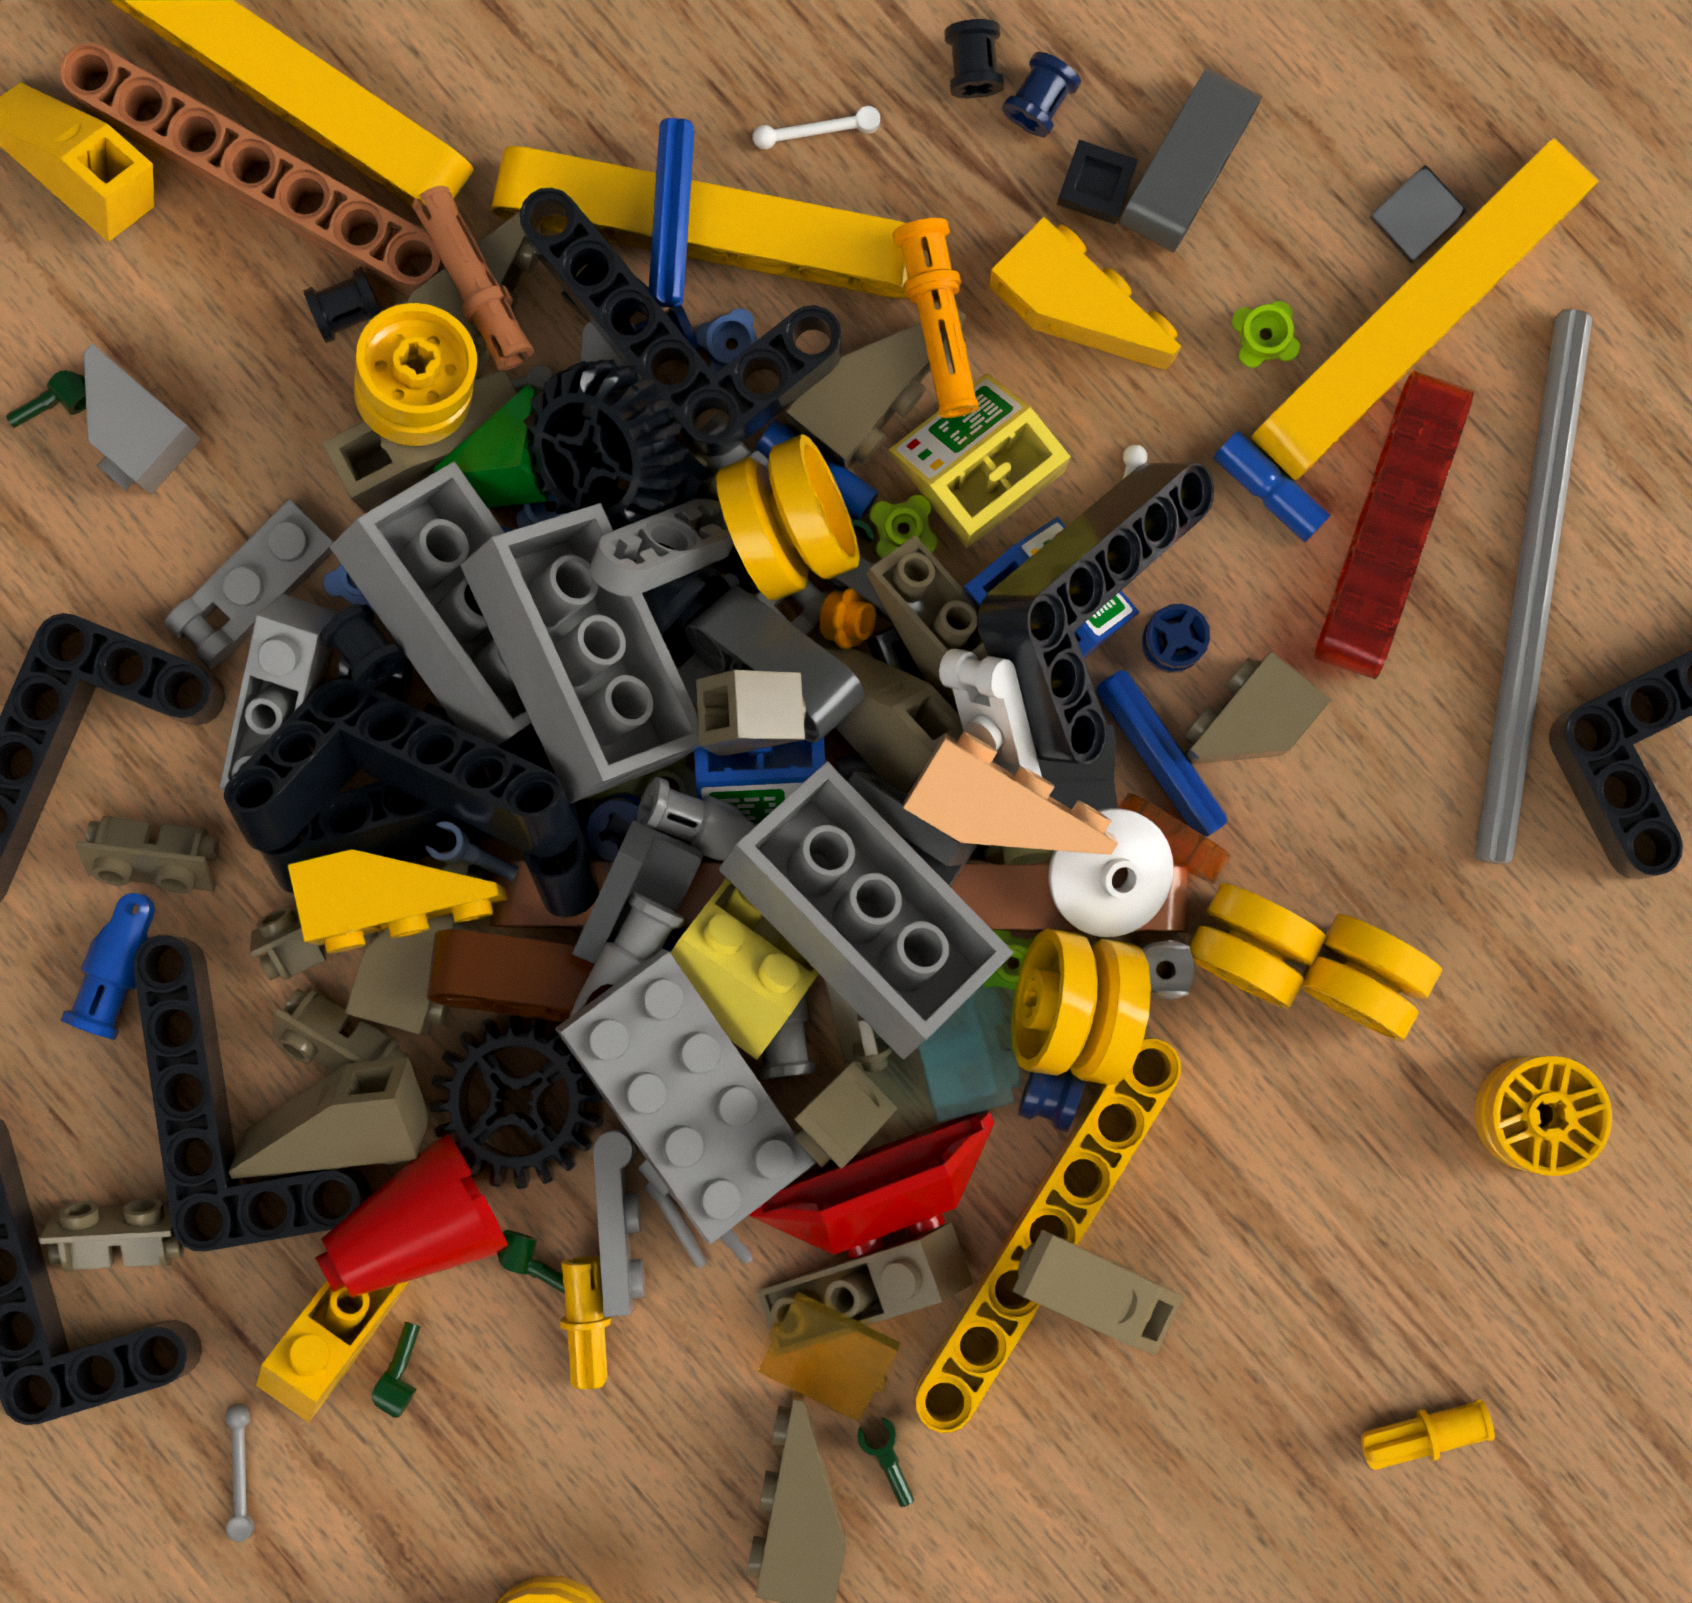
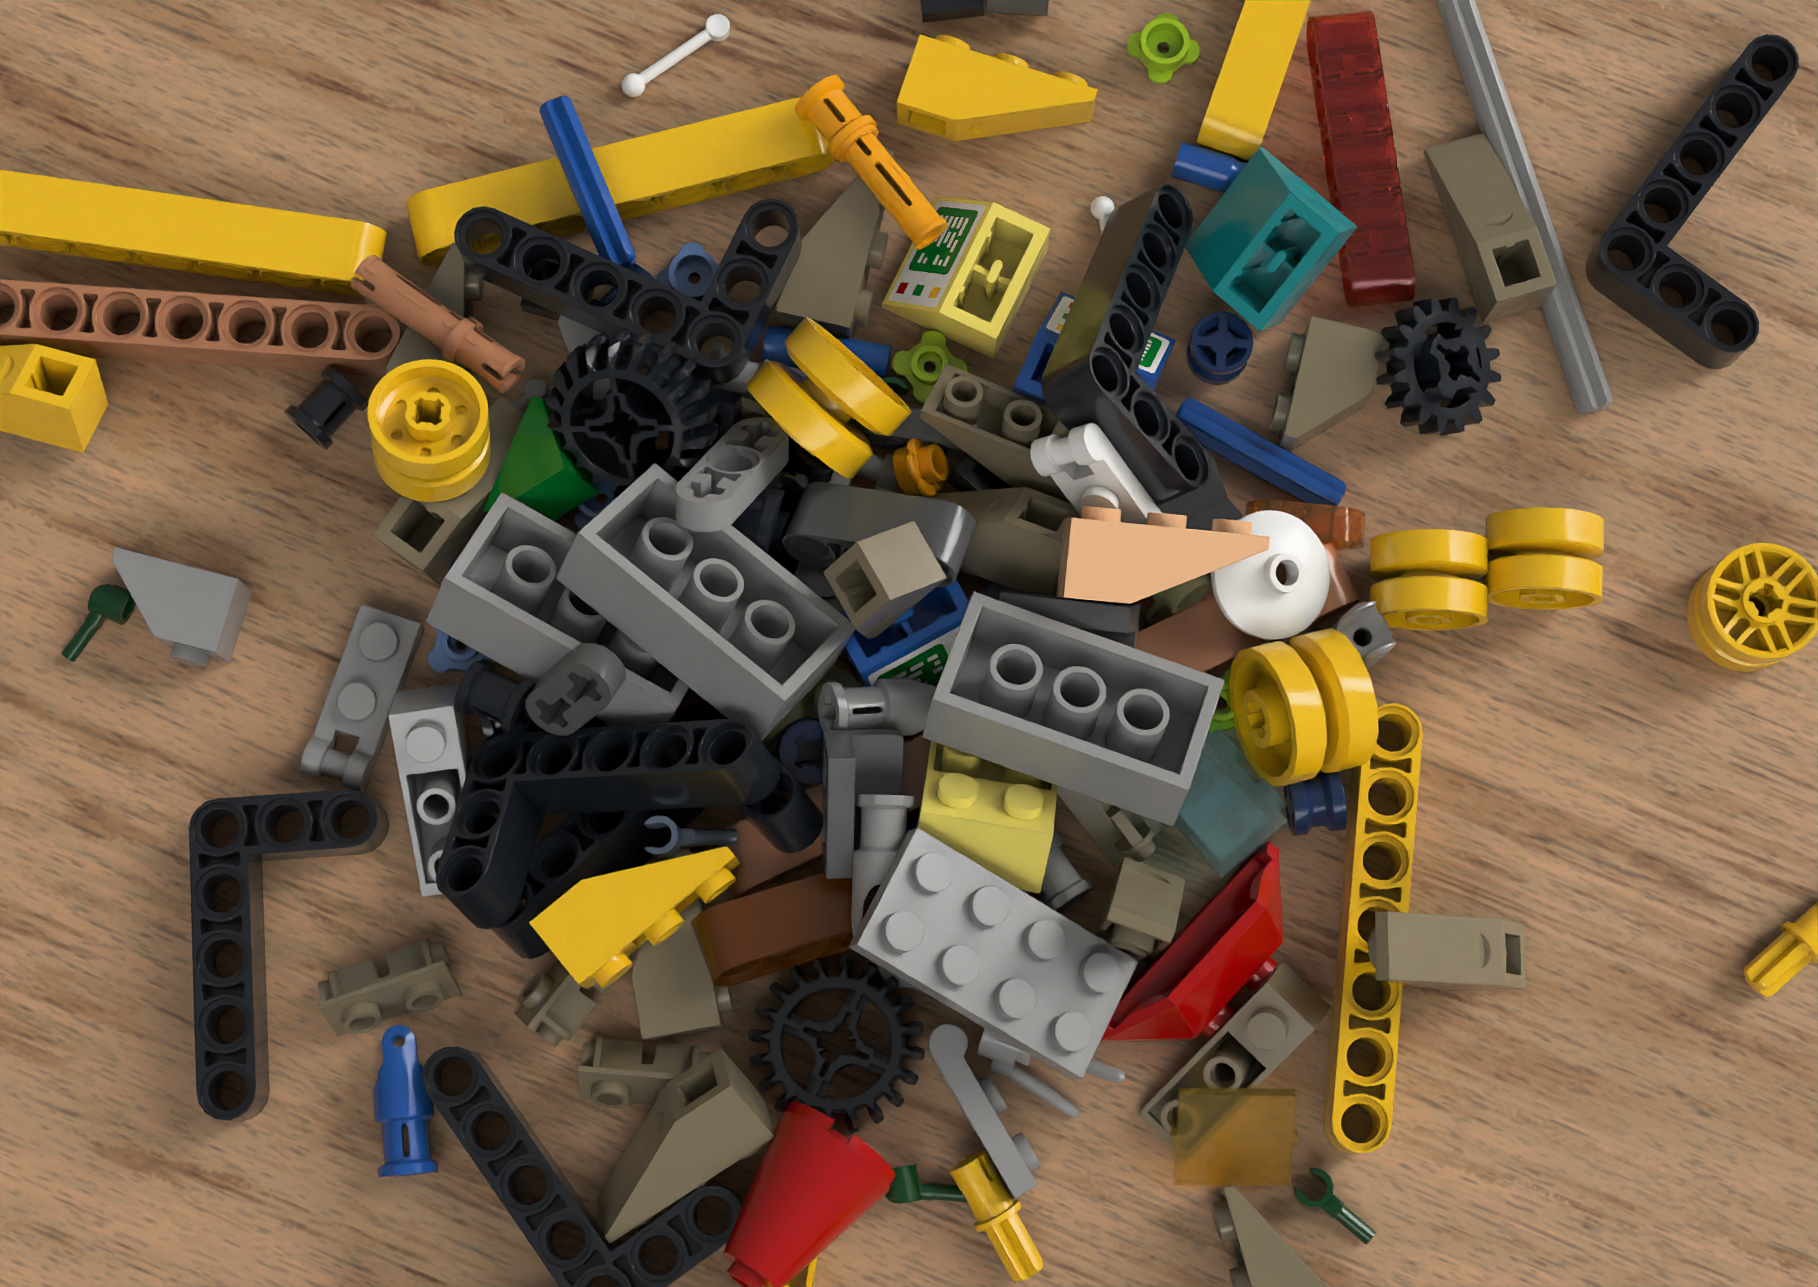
camera: 25 degrees left, 5 degrees down
(430, 674) = (581, 697): none -> dark grey beam
(1266, 562) = (1267, 241): none -> teal slope
(1365, 753) = (1438, 366): none -> black gear
(1480, 646) = (1490, 229): none -> dark tan slope

